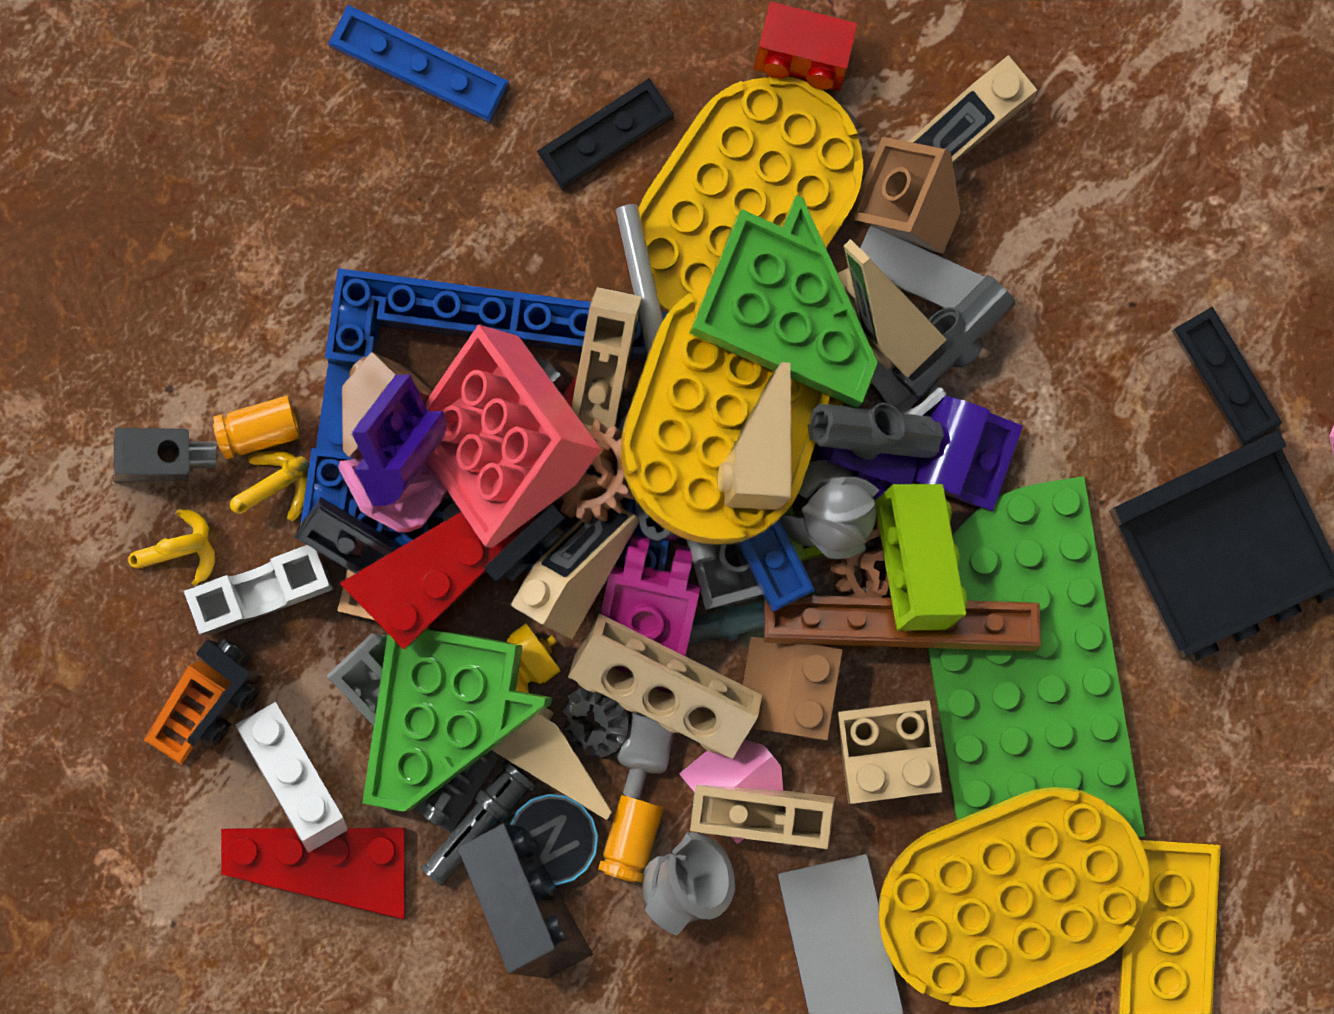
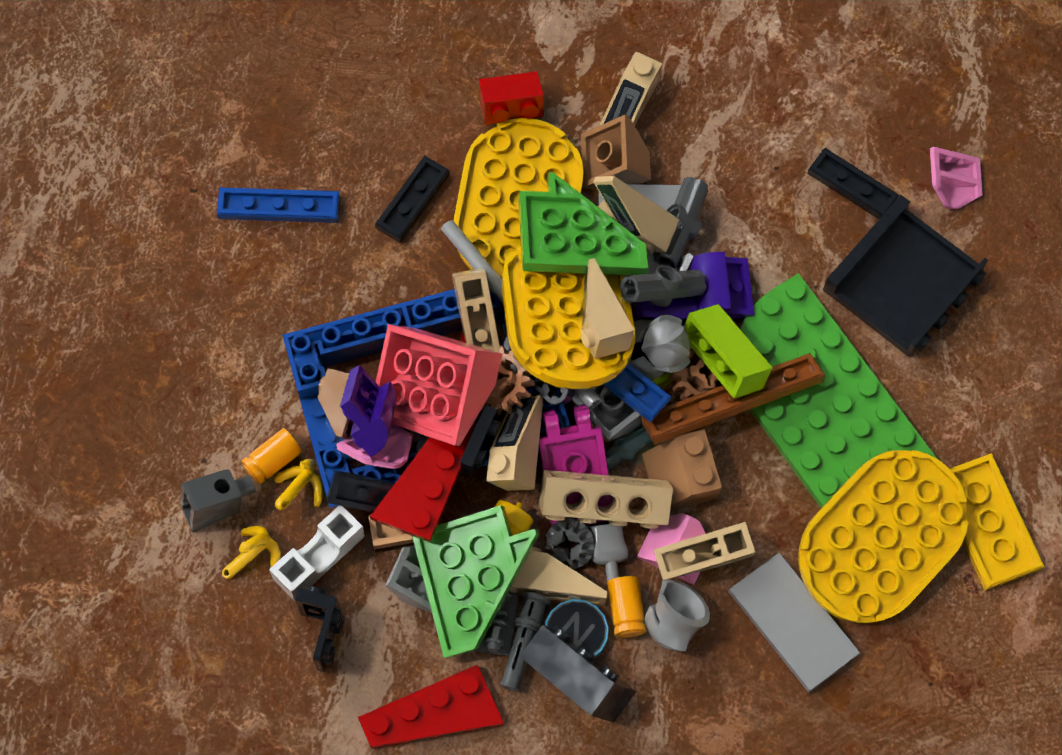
camera: 30 degrees left, 15 degrees down
(207, 678) = (294, 638): orange slope -> none
(291, 777) = (406, 667): white arch -> none
(889, 752) = (763, 483): tan slope -> none

